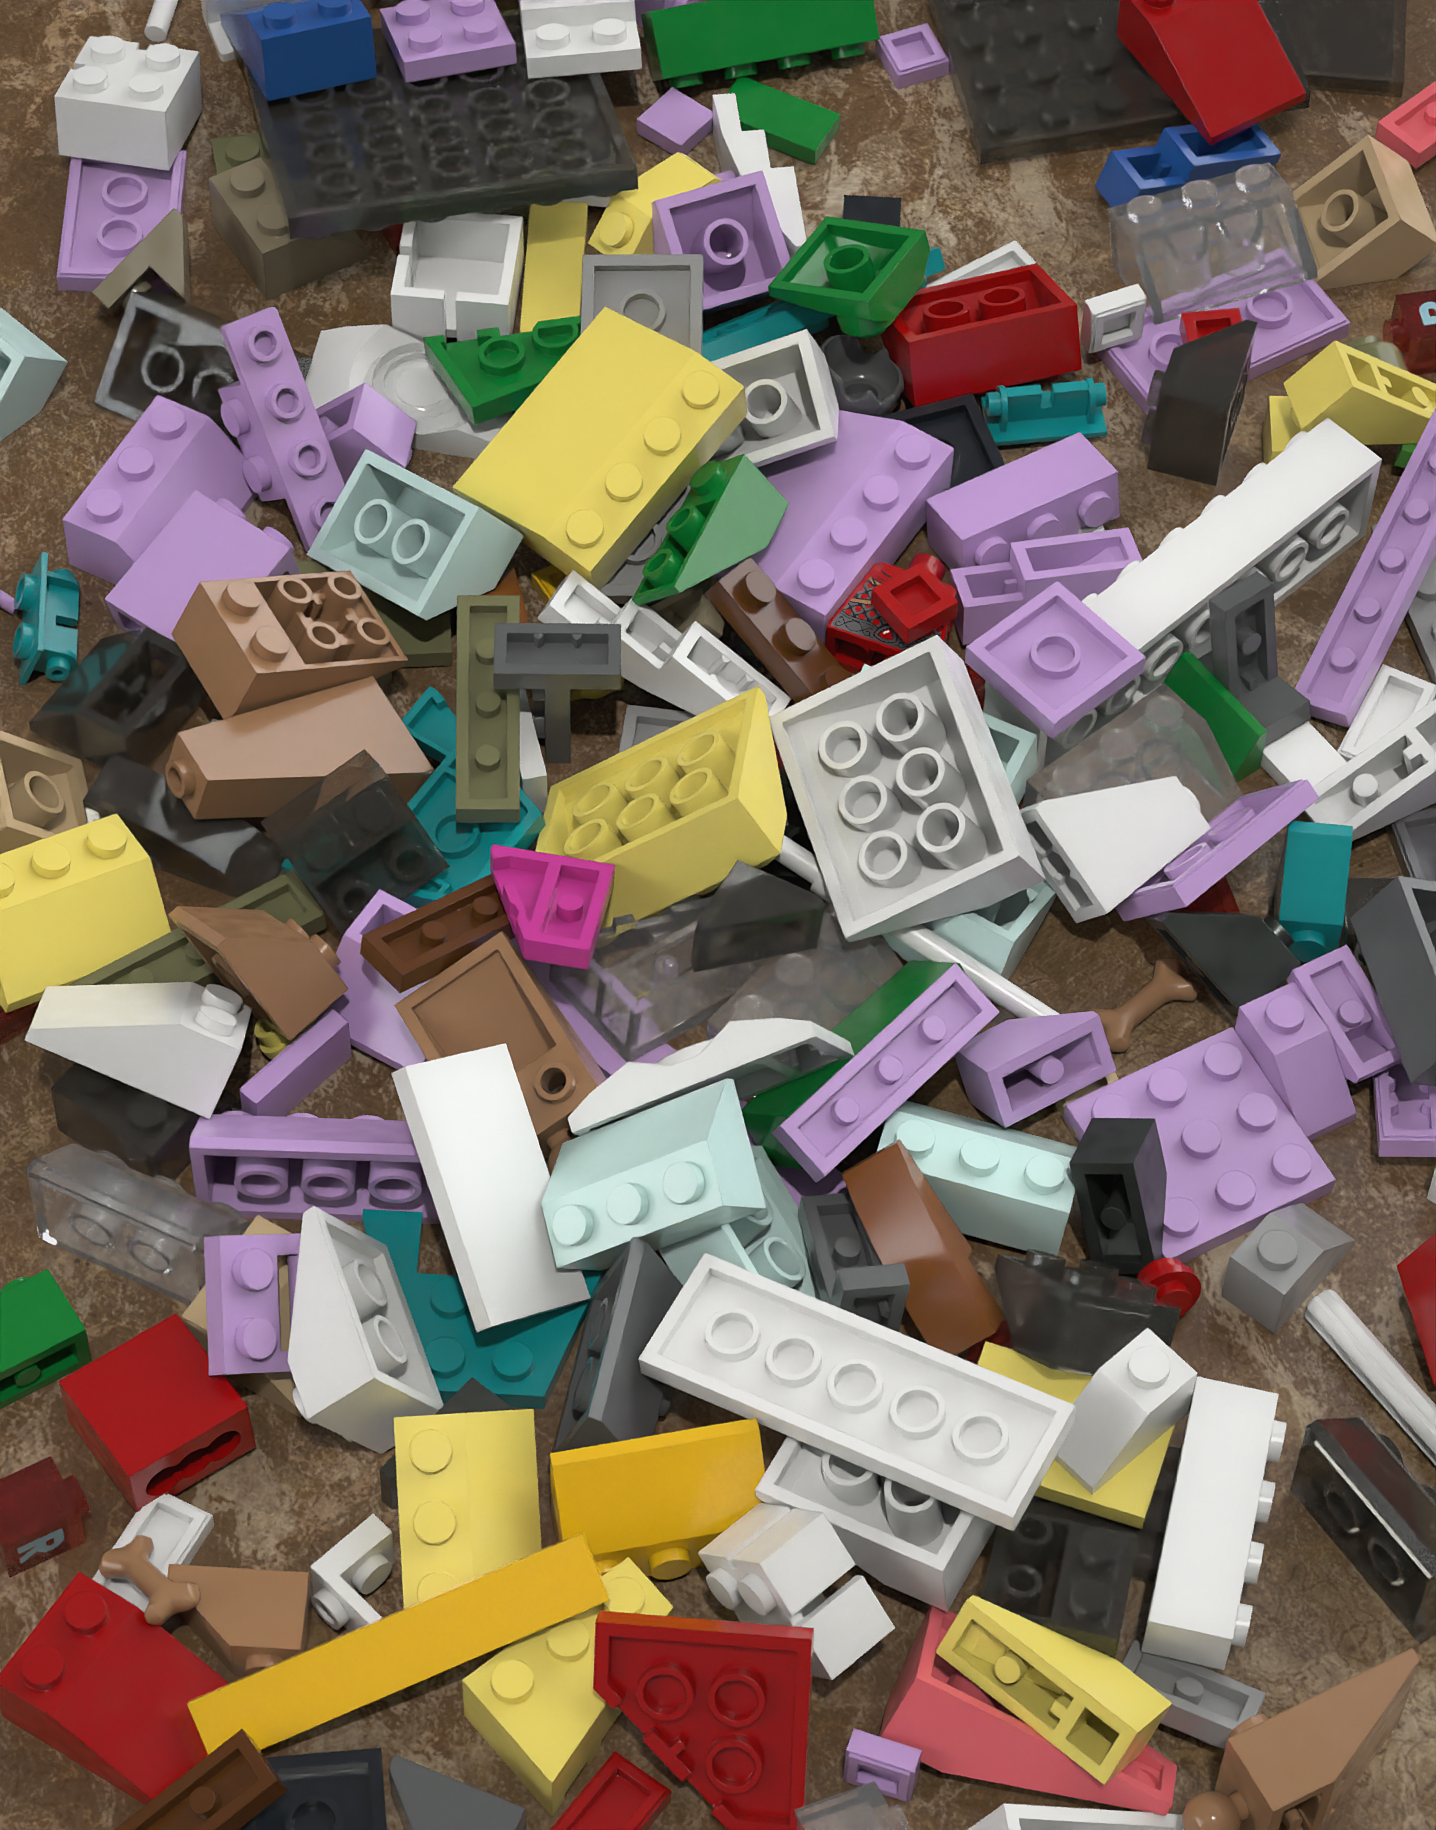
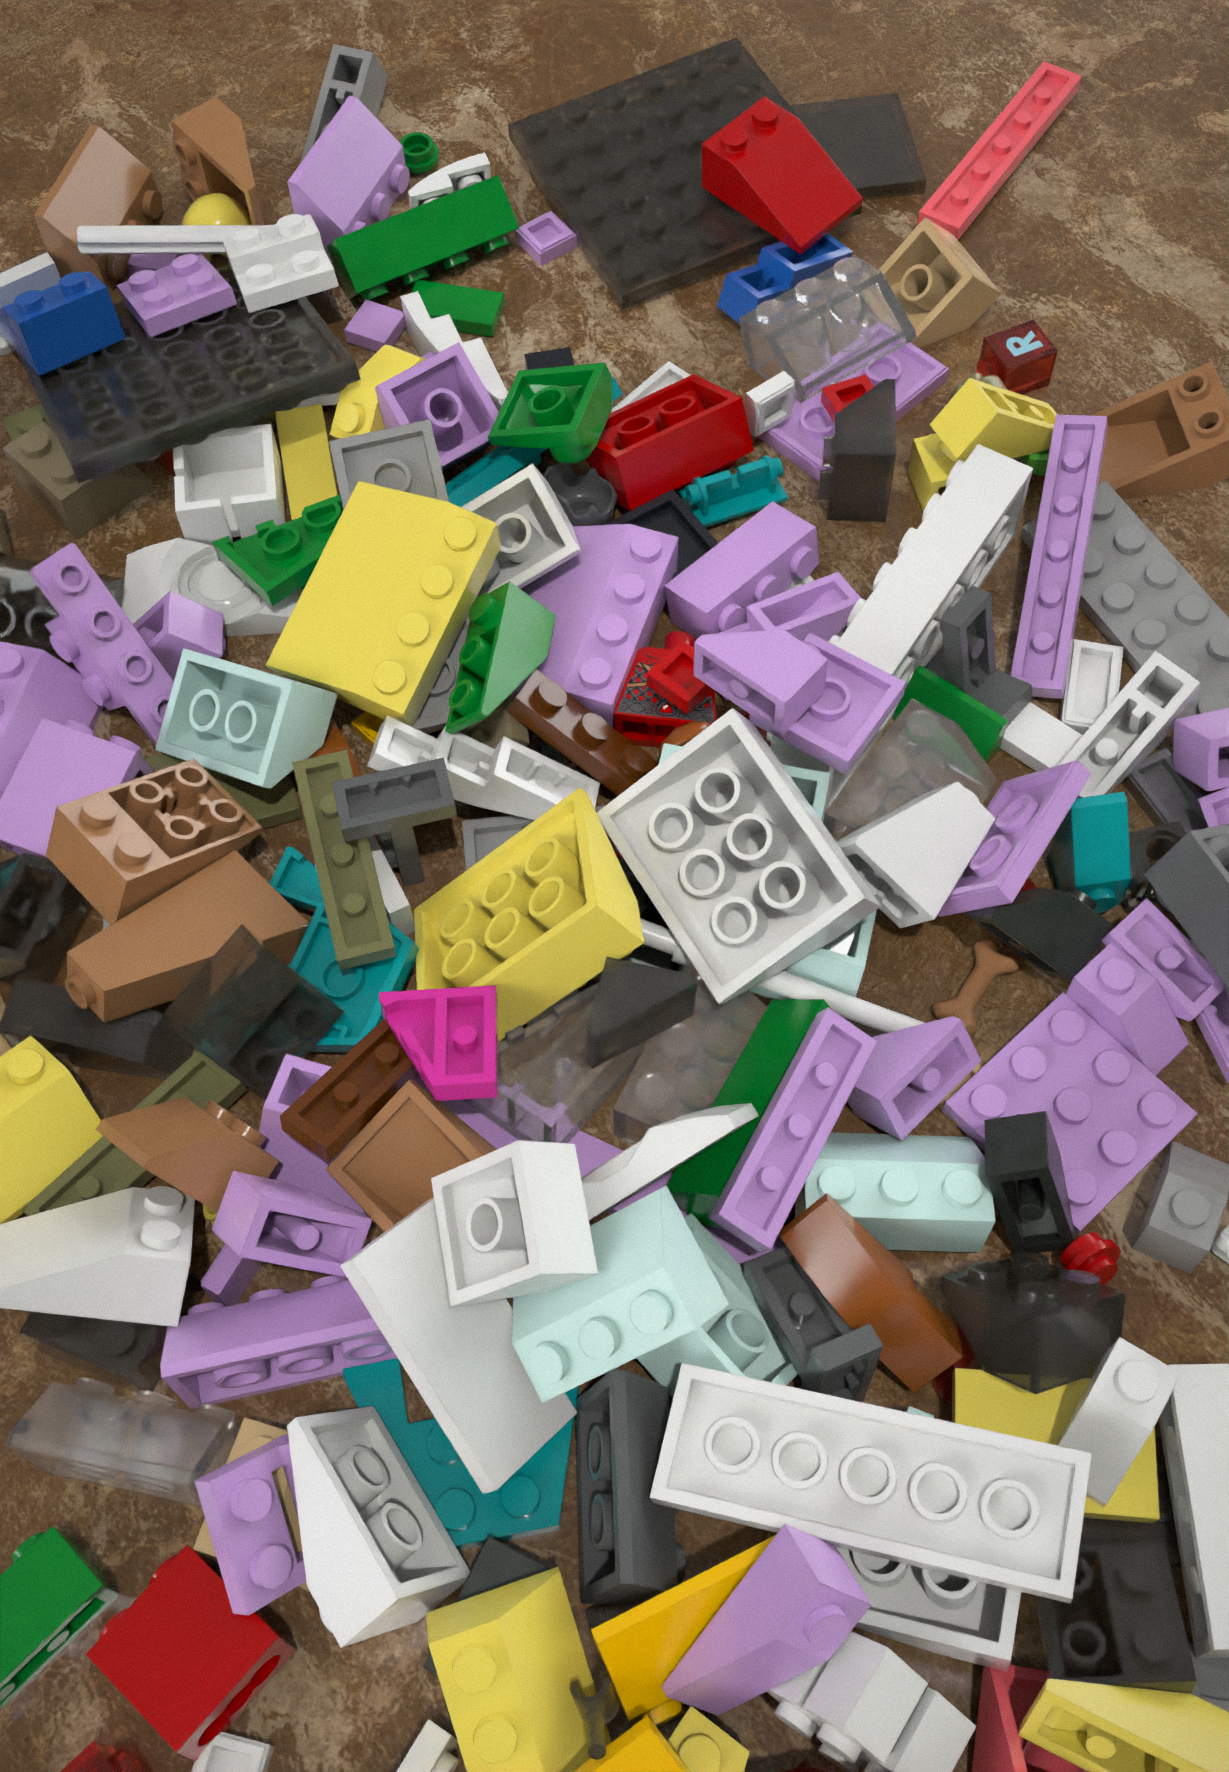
camera: 10 degrees left, 5 degrees up
(342, 1046) = (288, 1225): none -> lavender slope
(537, 1530) = (596, 1712): none -> clear smoke hand
(572, 1080) = (513, 1223): none -> white slope
(717, 1492) = (773, 1626): none -> lavender slope
(987, 610) = (763, 673): none -> lavender slope

